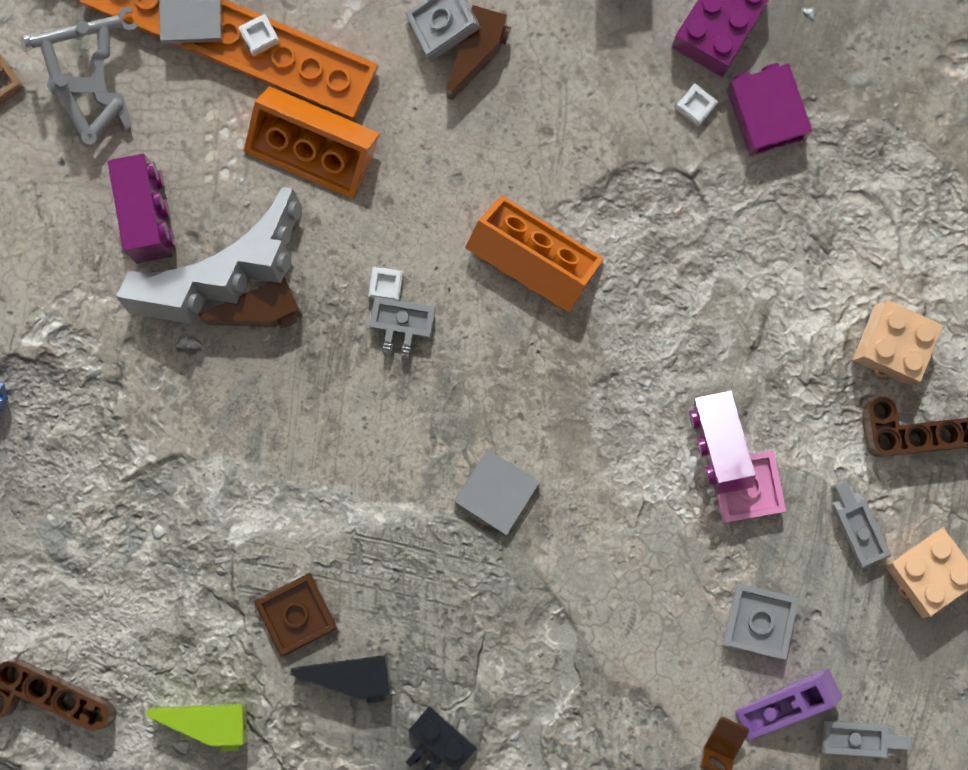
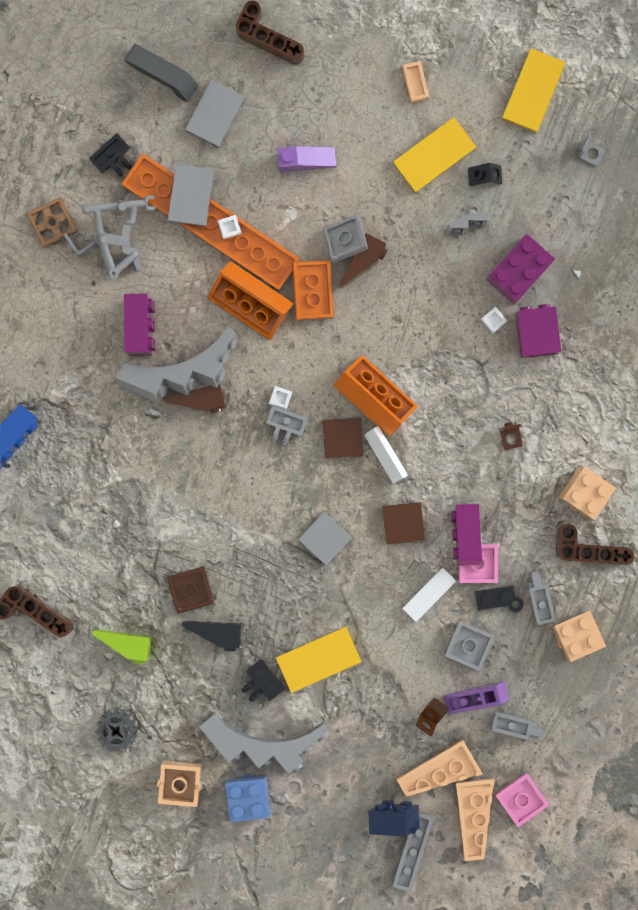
camera: 10 degrees right, 5 degrees up
(34, 114) = (86, 250): none -> light grey bracket
(405, 108) = (312, 290): none -> orange tile
(495, 328) = (342, 438): none -> reddish brown tile
(522, 689) = (318, 659): none -> yellow tile
(568, 341) = (385, 454): none -> white tile
(617, 445) = (403, 523): none -> reddish brown tile
(679, 551) = (429, 594): none -> white tile
(756, 265) = (511, 428): none -> reddish brown bracket
(789, 537) = (497, 598): none -> black hinge

